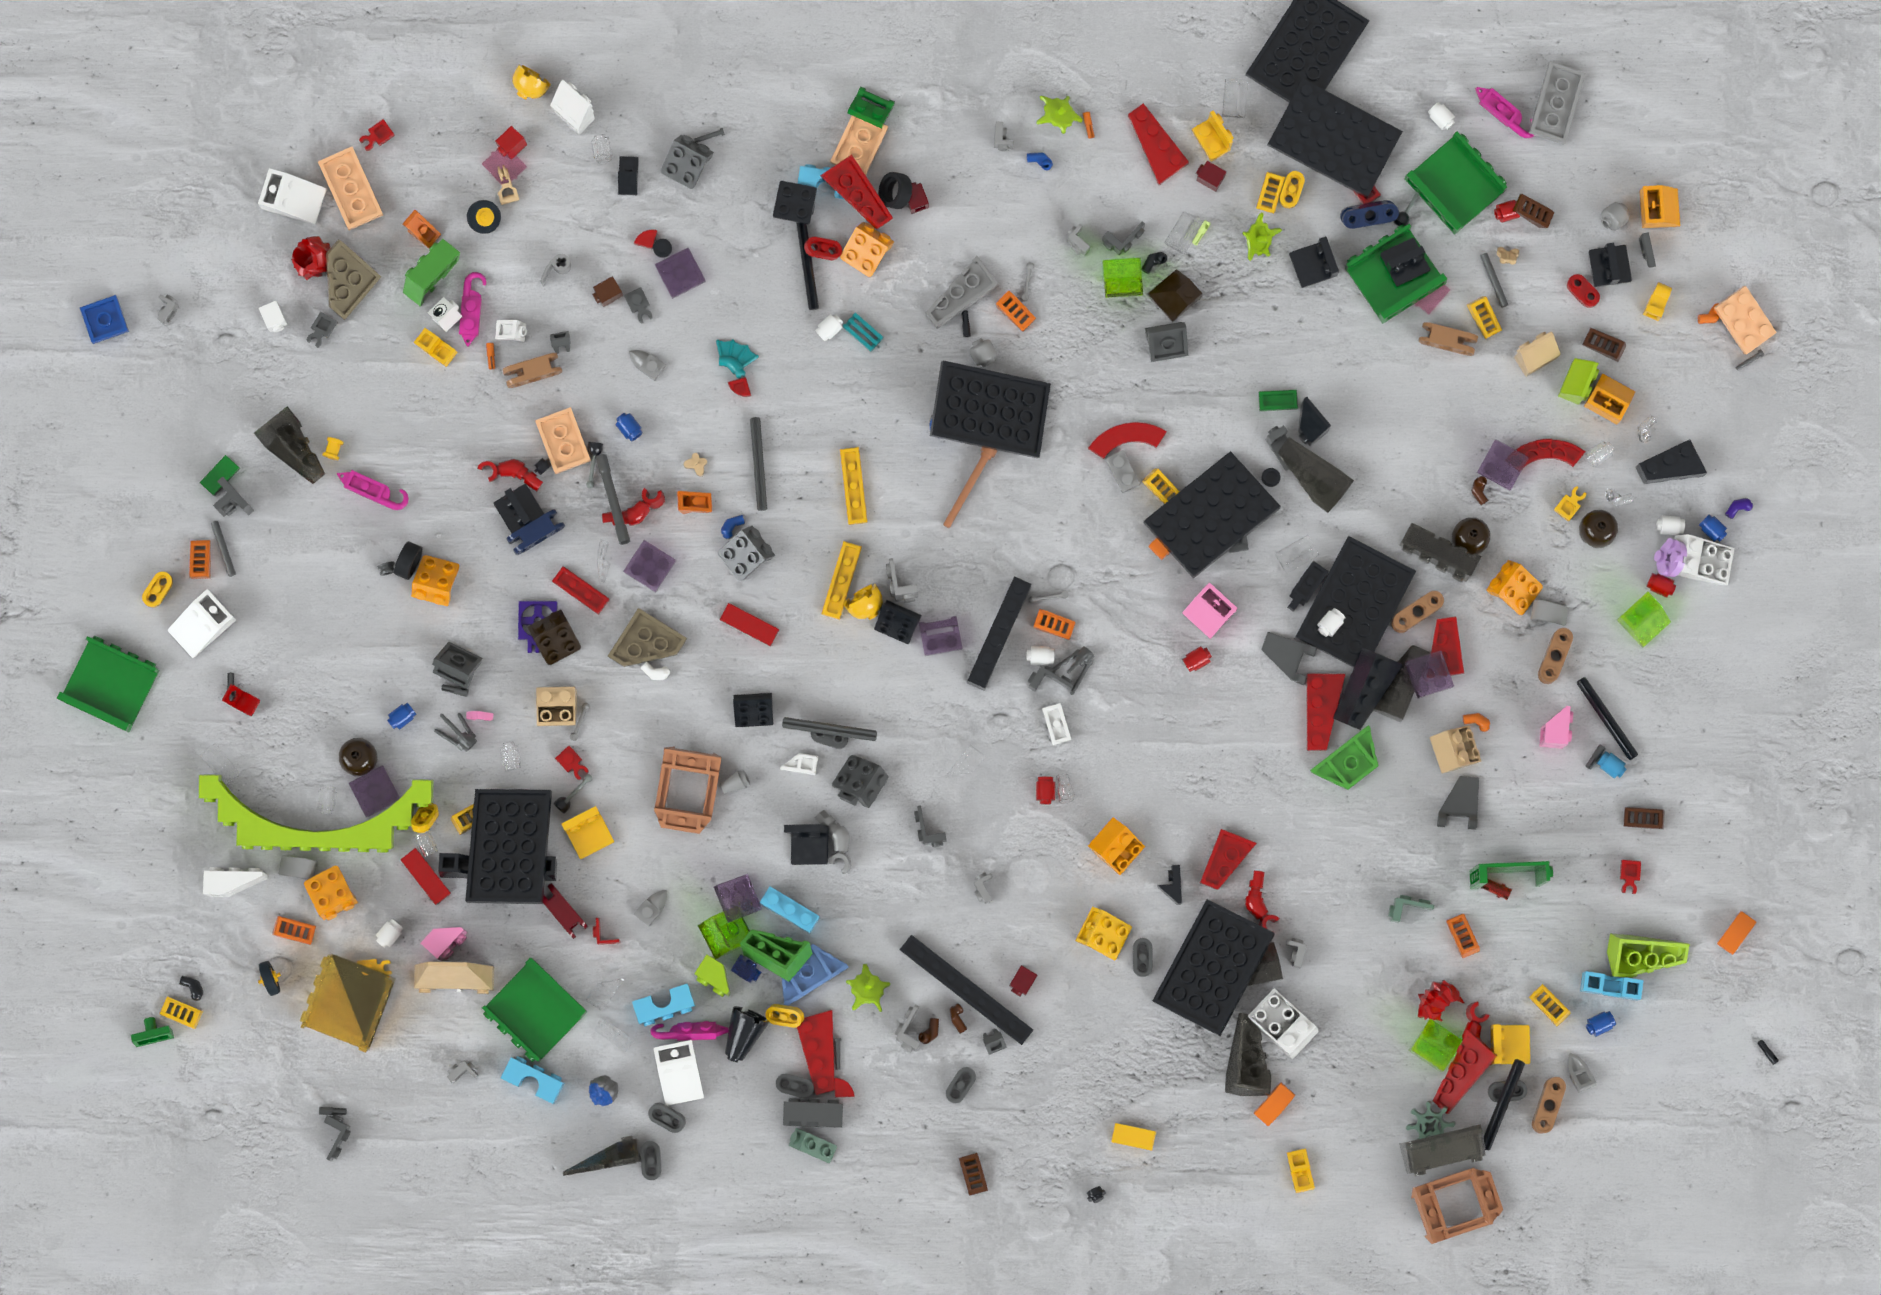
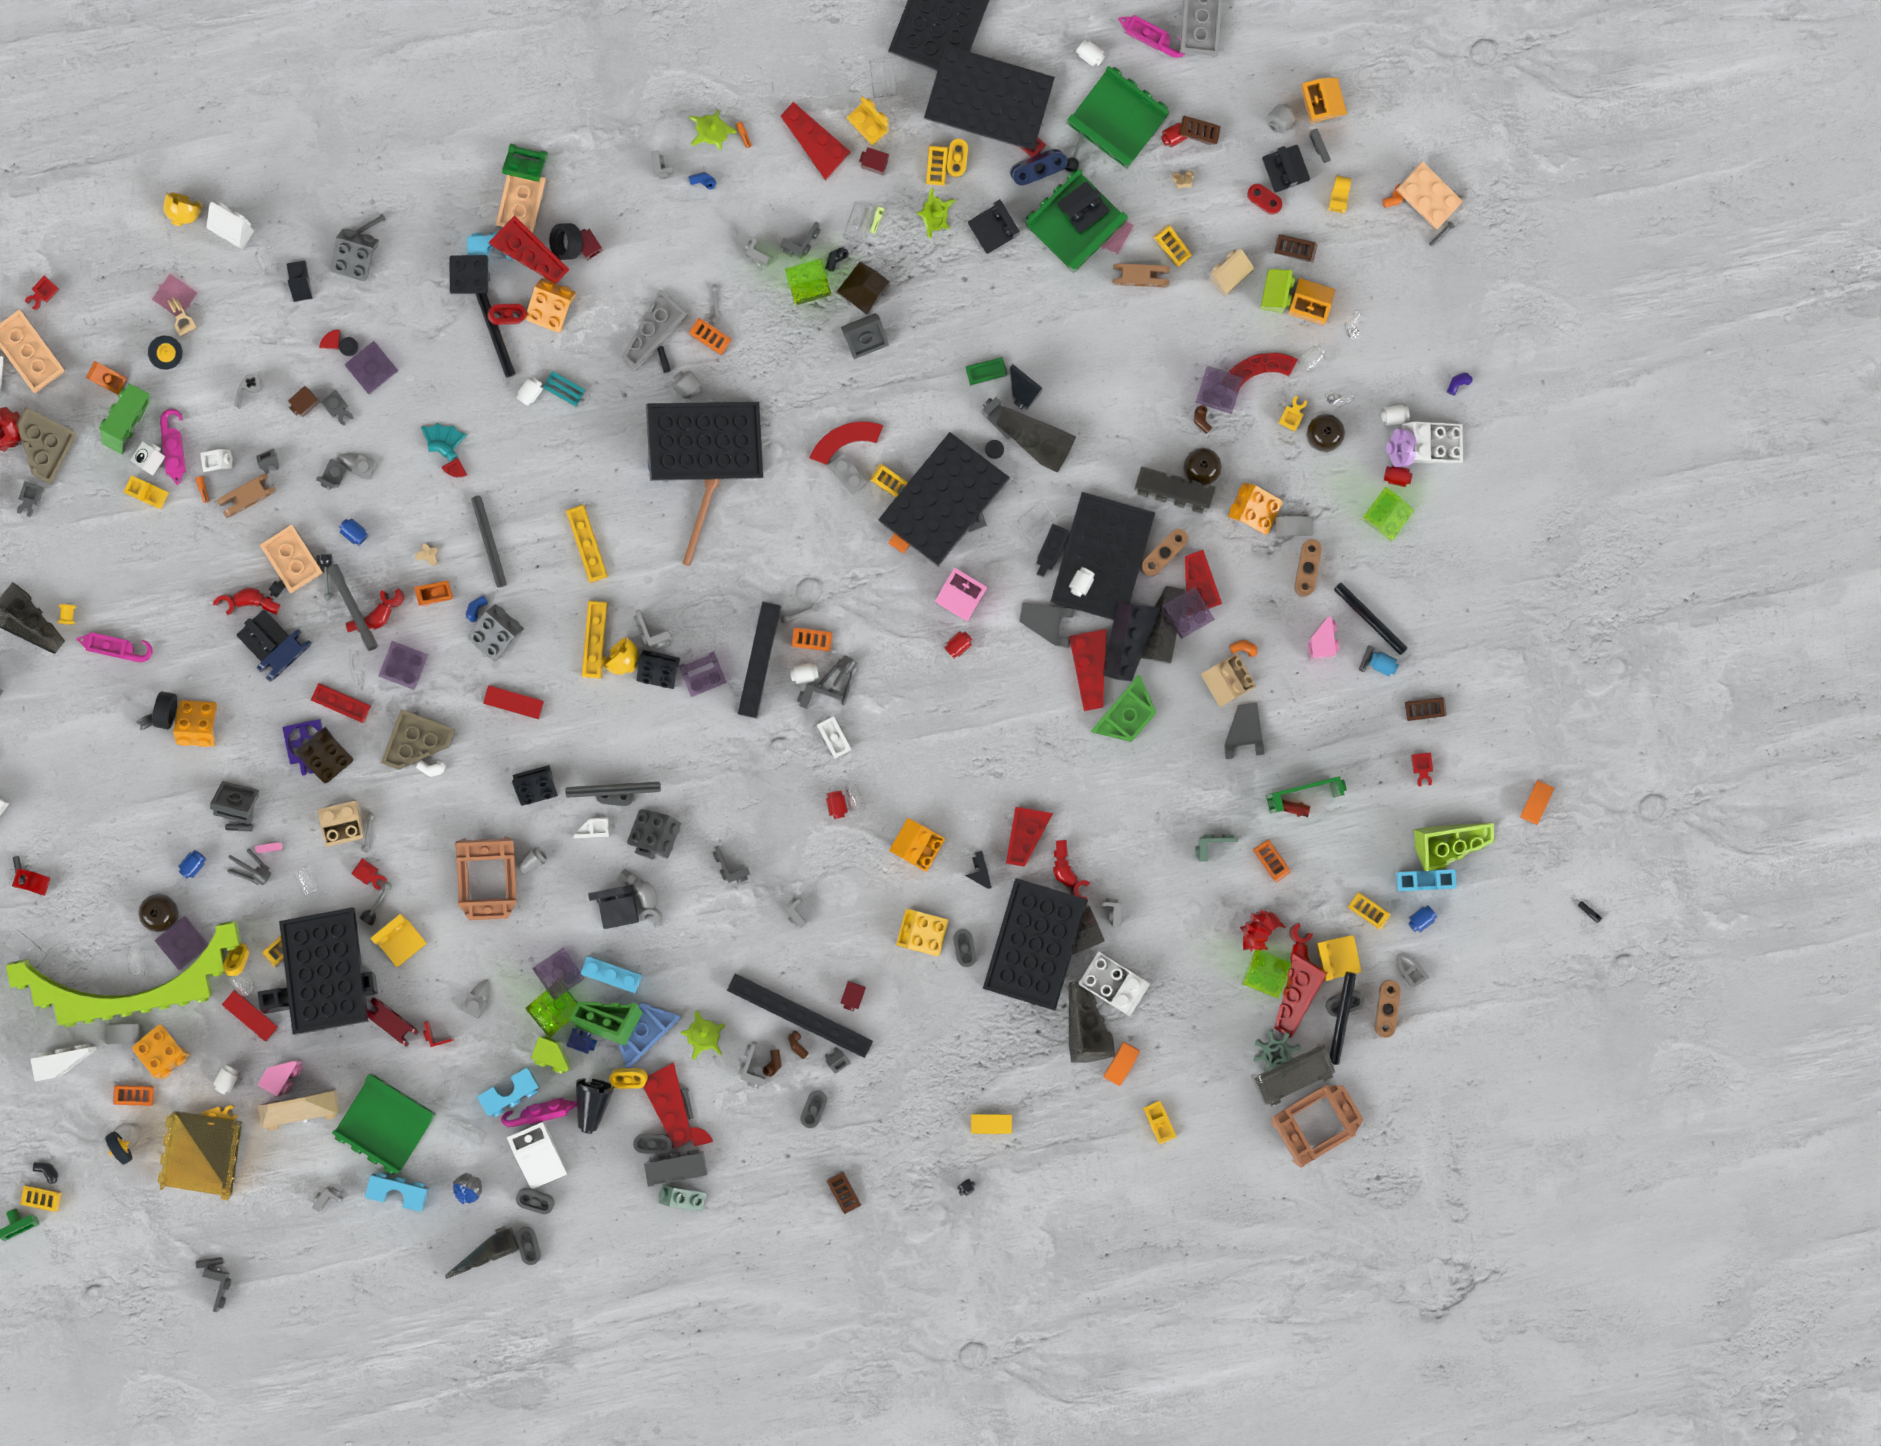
camera: 10 degrees left, 5 degrees up
(510, 143) = (175, 273): red brick -> none
(615, 373) = (327, 480): none -> dark grey bracket
(1494, 280) = (1175, 207): dark grey bar -> none
(1673, 464) = (1385, 354): black wedge -> none
(1713, 528) = (1438, 409): blue brick -> none

